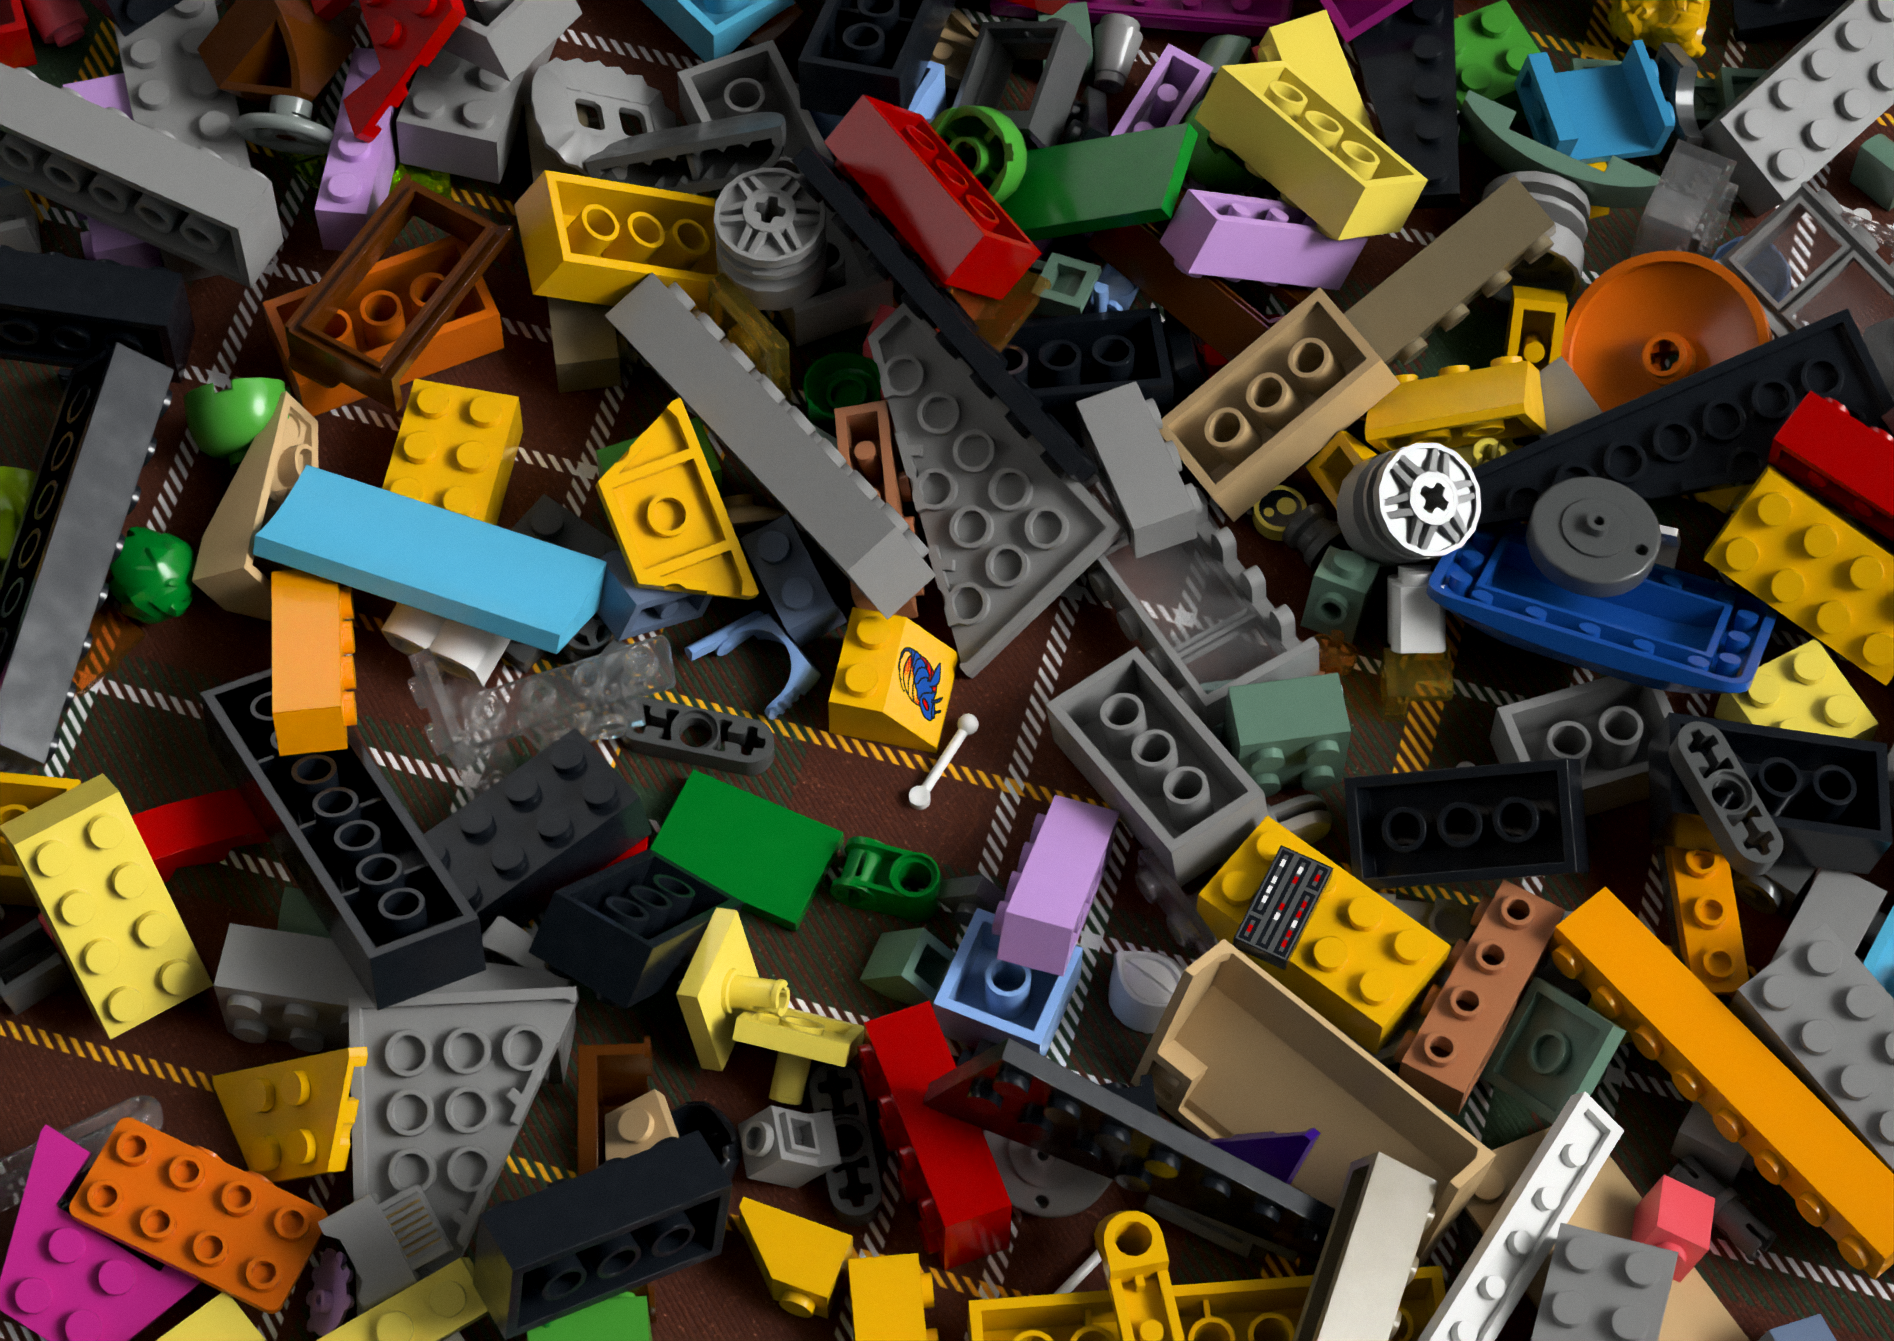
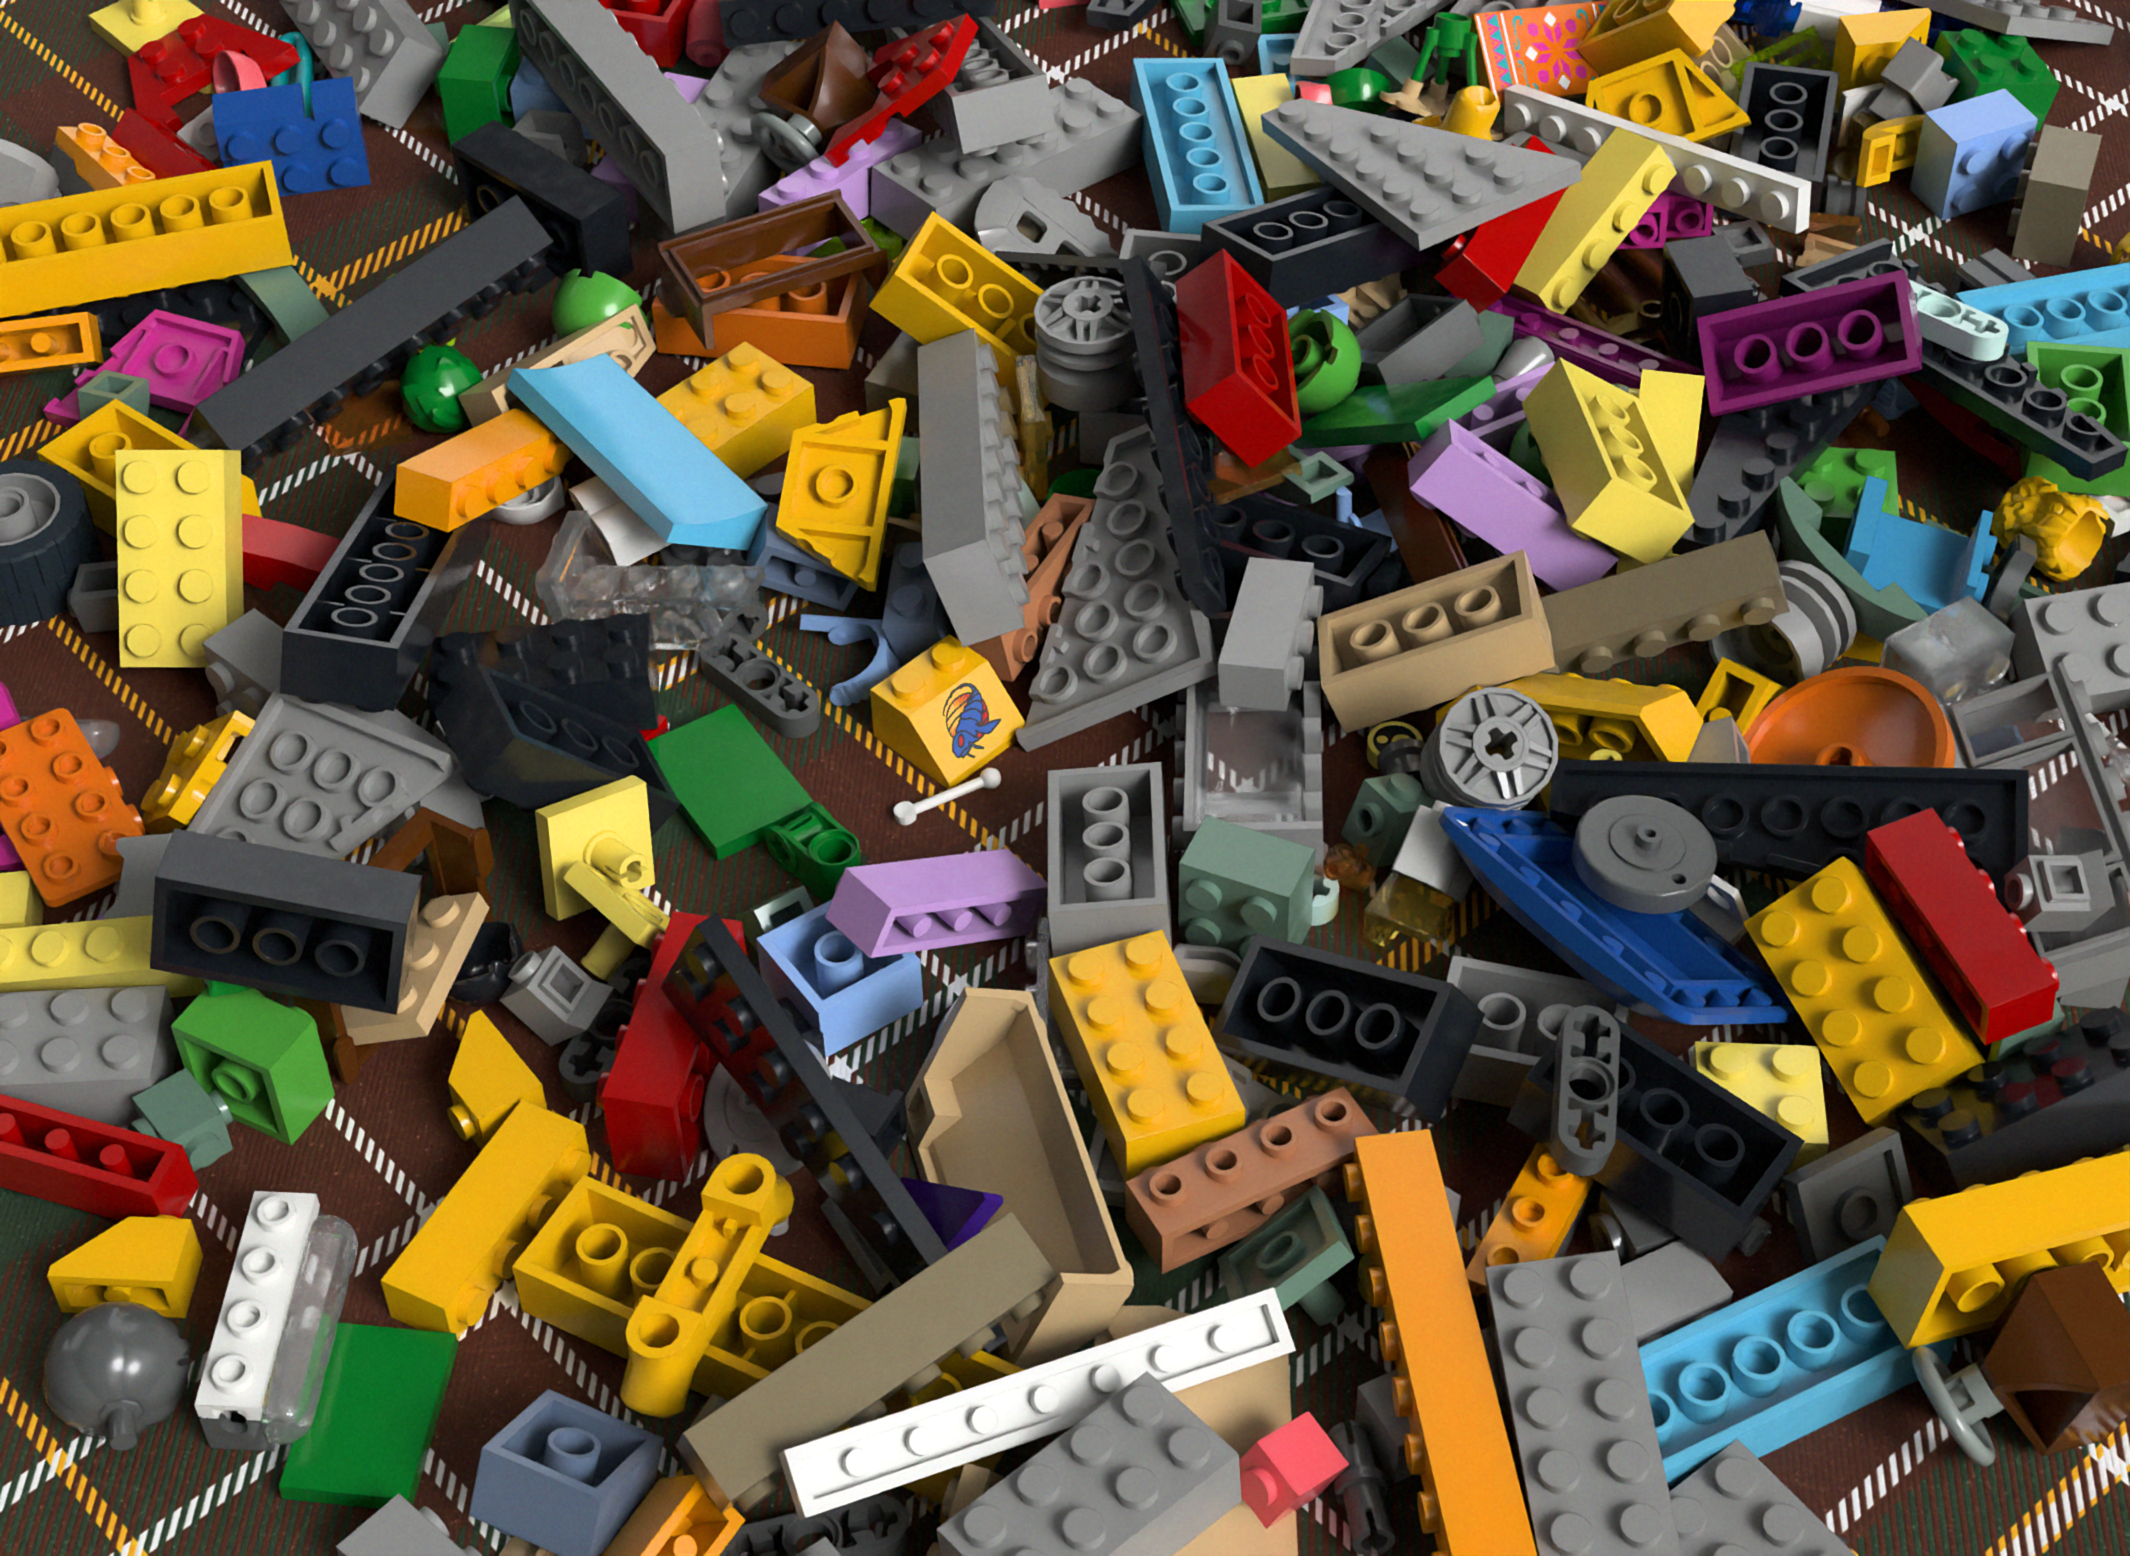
camera: 35 degrees right, 15 degrees down
(1282, 907) = (1106, 995): tile -> none

